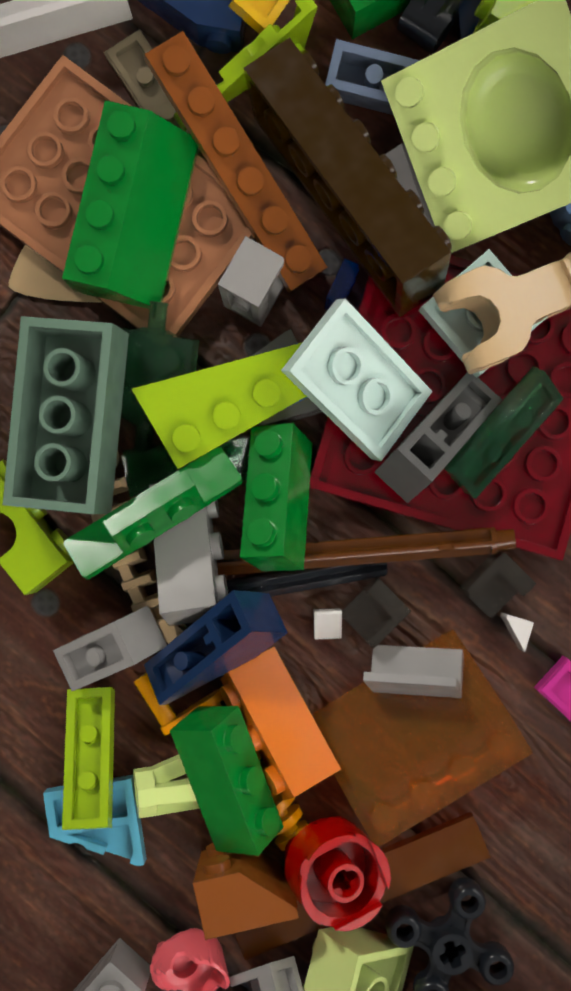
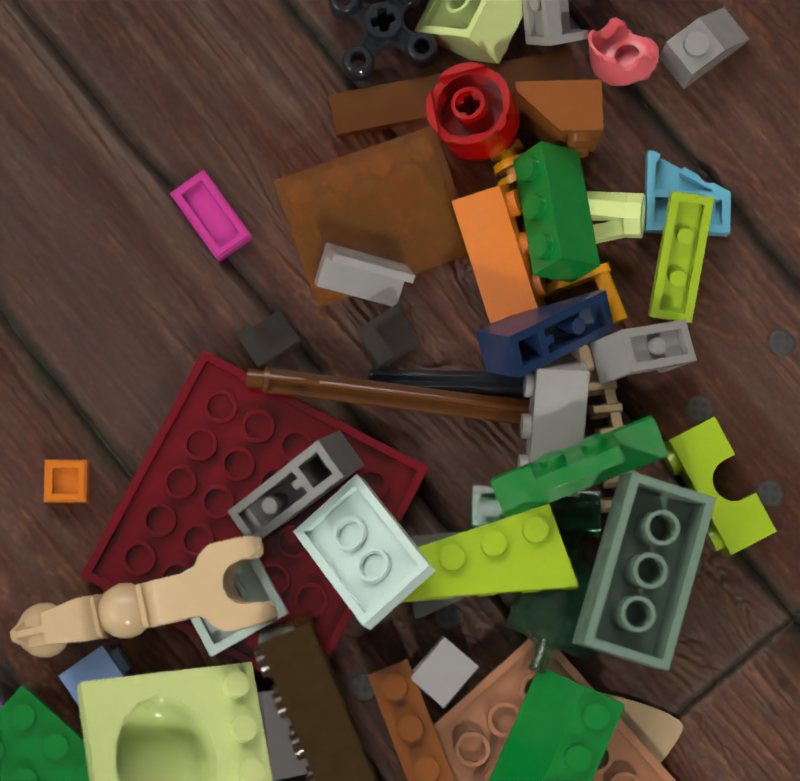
camera: 175 degrees left, 5 degrees down
(276, 498) = (460, 459): green brick -> none
(327, 623) = (434, 336): white piece -> none
(343, 283) = (356, 654): clear blue tile -> none
(504, 432) = (234, 478): clear green plate -> none
(519, 629) = (255, 296): white piece -> none

